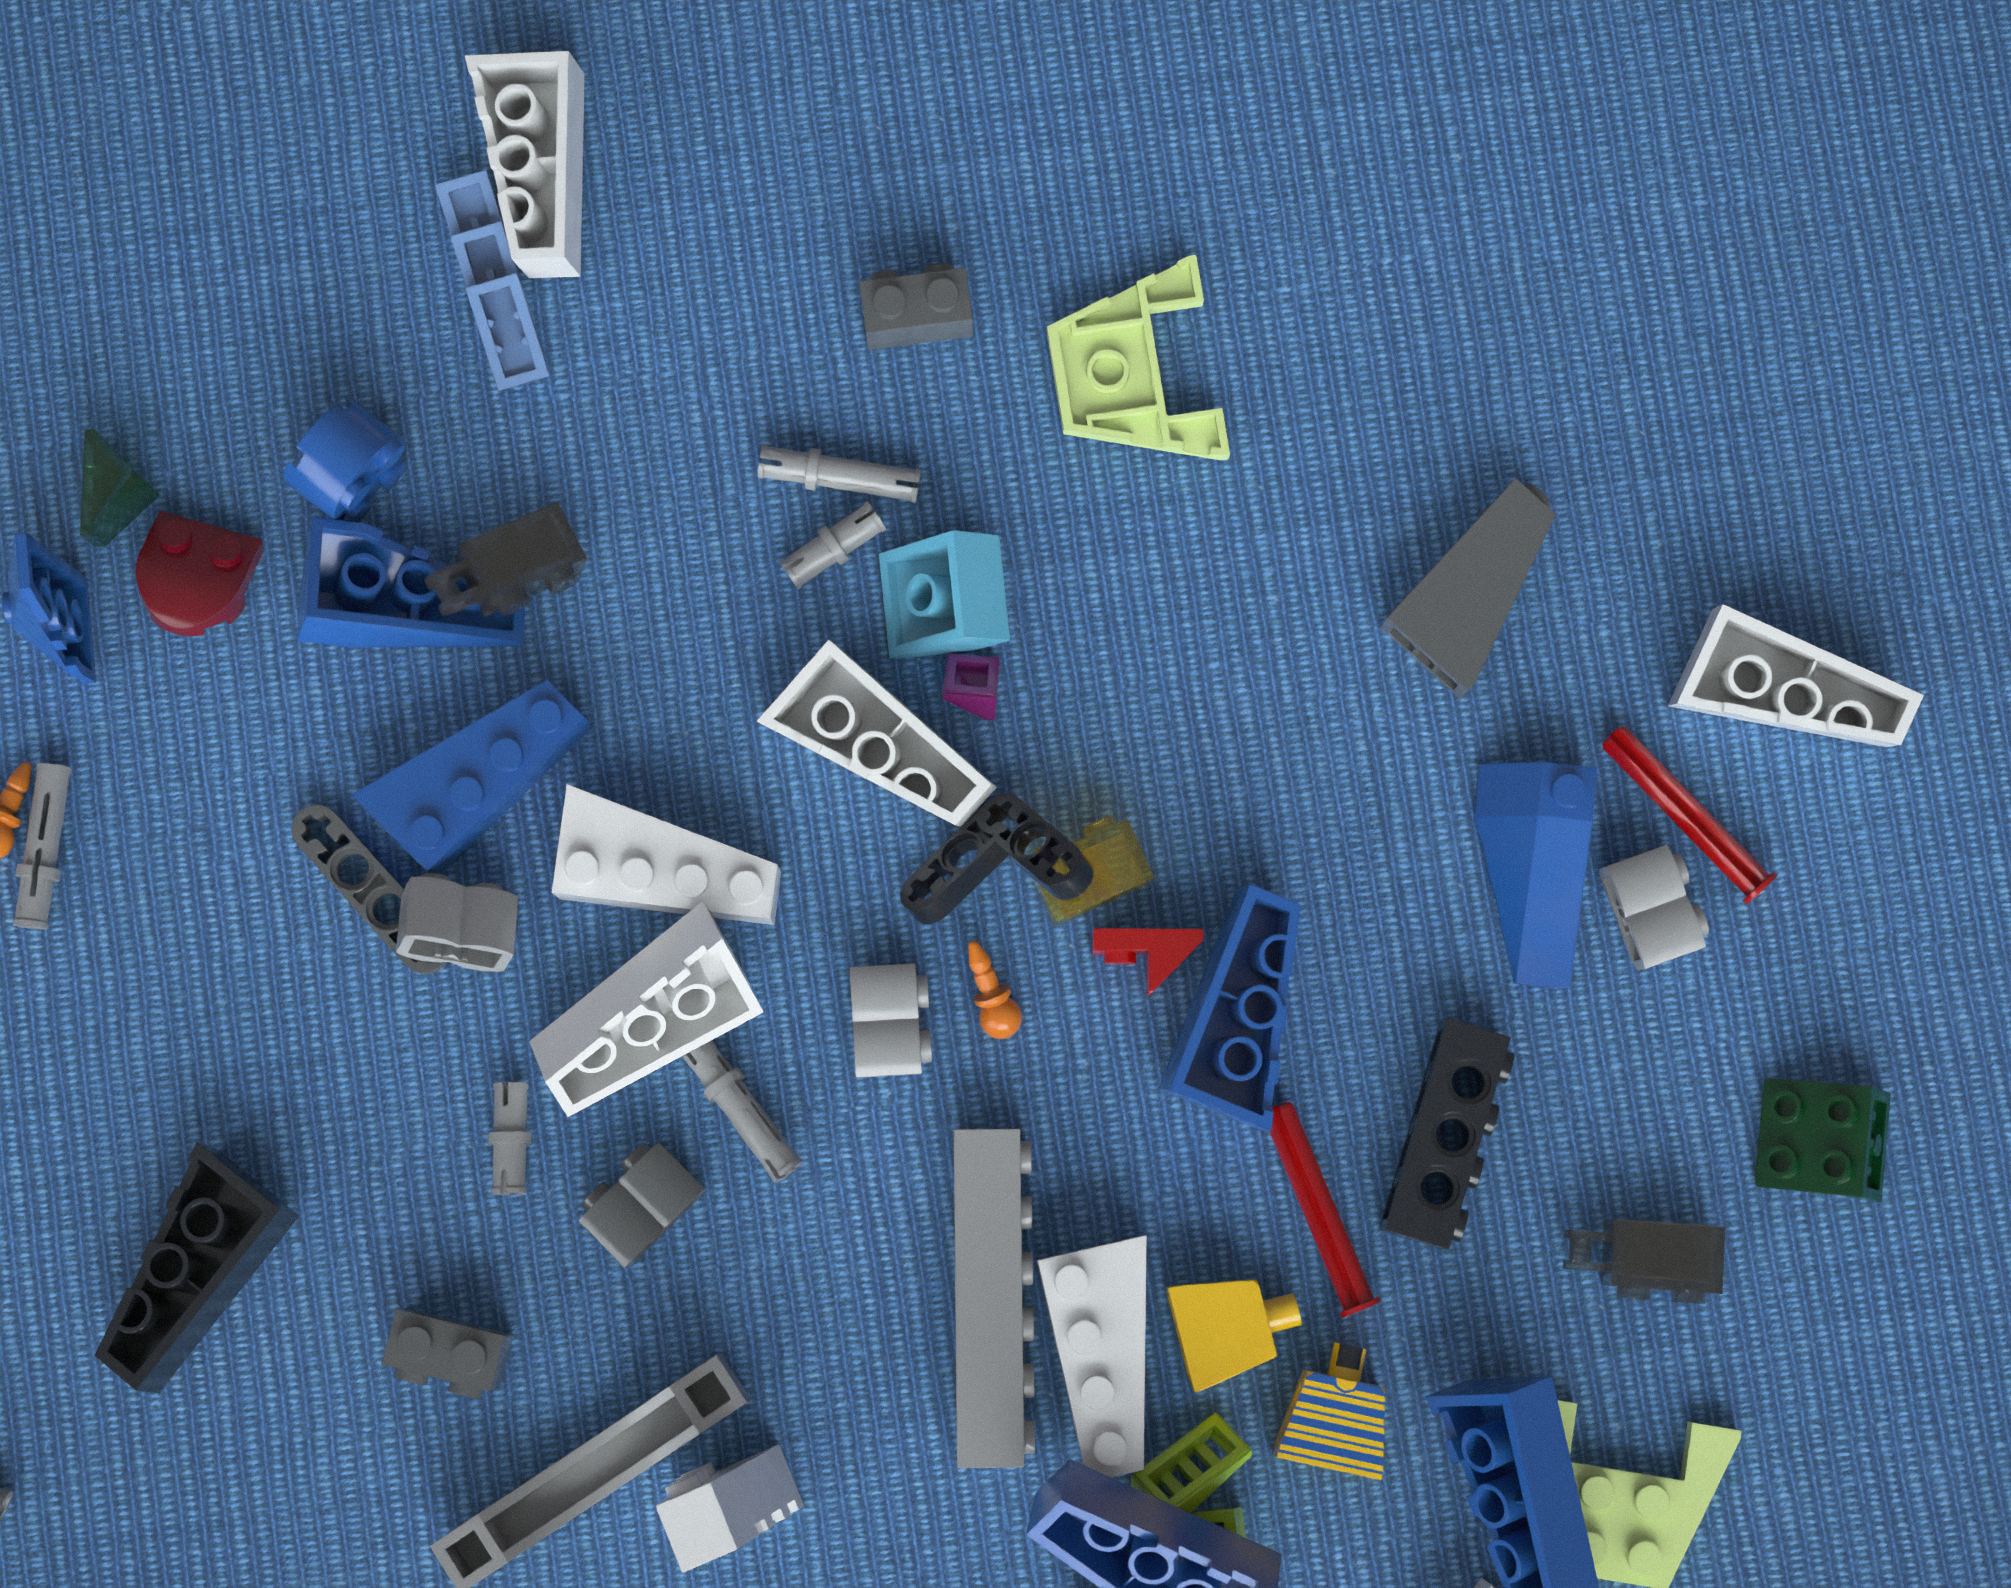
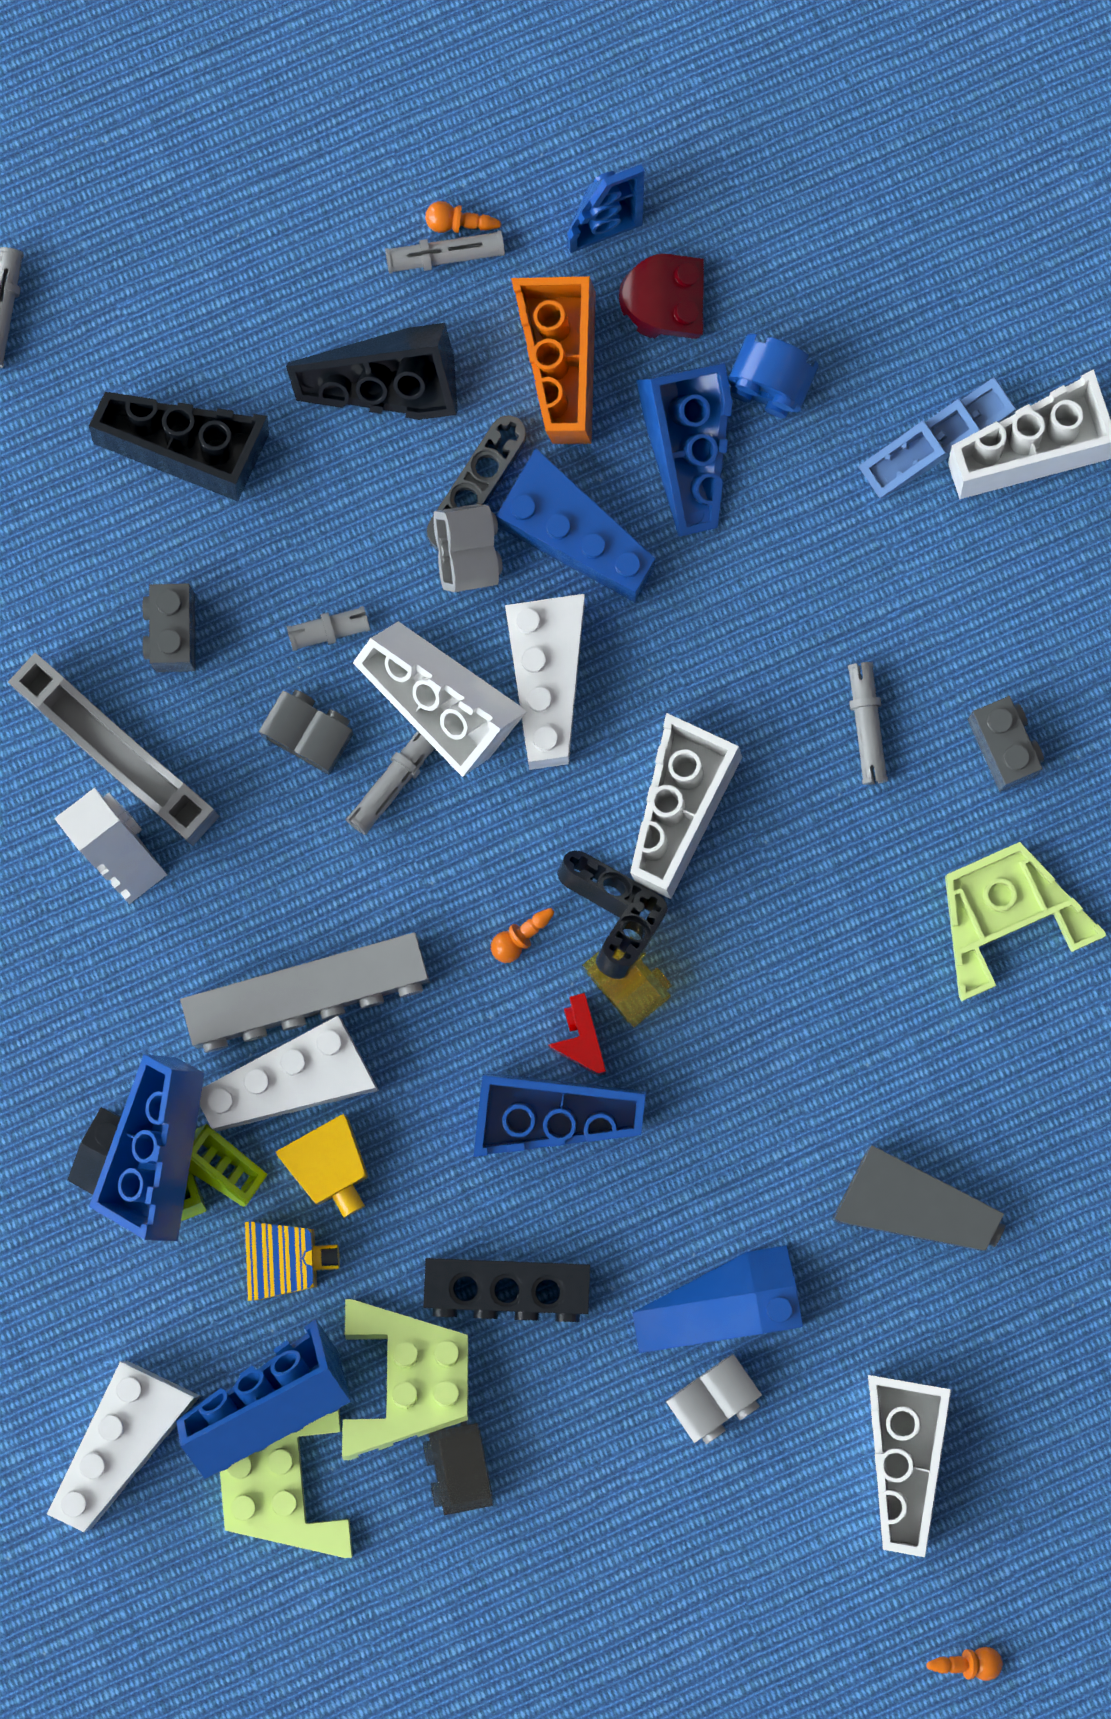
camera: 85 degrees right, 0 degrees up
(110, 491) = (707, 221): slope -> none
(184, 961) = (392, 372): none -> black wedge
(214, 725) = (560, 347): none -> orange wedge
(512, 564) = (732, 511): clear smoke brick -> none
(832, 545) = (813, 733): light grey pin -> none
(887, 1020) = (480, 867): light grey brick -> none
(944, 595) = (799, 823): medium azure slope -> none
(972, 683) = (741, 861): magenta slope -> none
(1320, 1211) = (429, 1210): red axle -> none
(1537, 1273) = (423, 1378): none -> yellowish green wing
(1687, 813) = (792, 1407): red axle -> none
(1823, 1138) = (578, 1568): dark green bracket -> none

